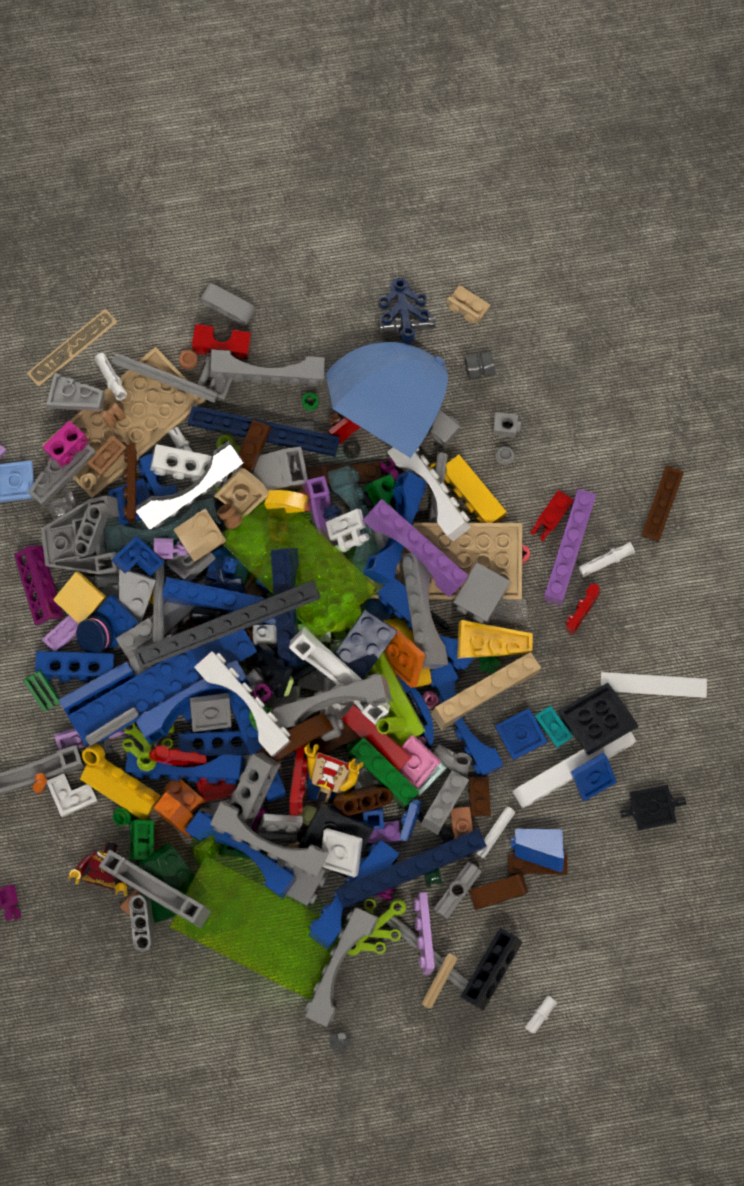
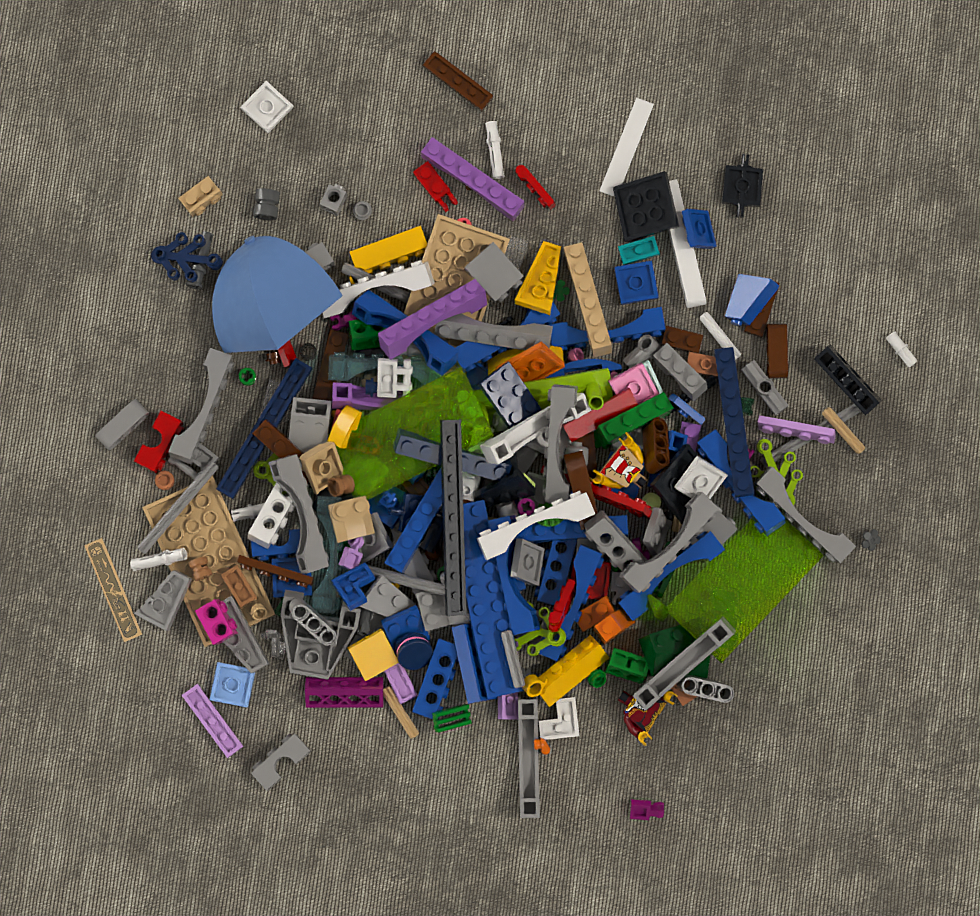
camera: 70 degrees left, 5 degrees up
(34, 643) = (400, 712): none -> tan axle
(574, 336) = (267, 107): none -> white plate

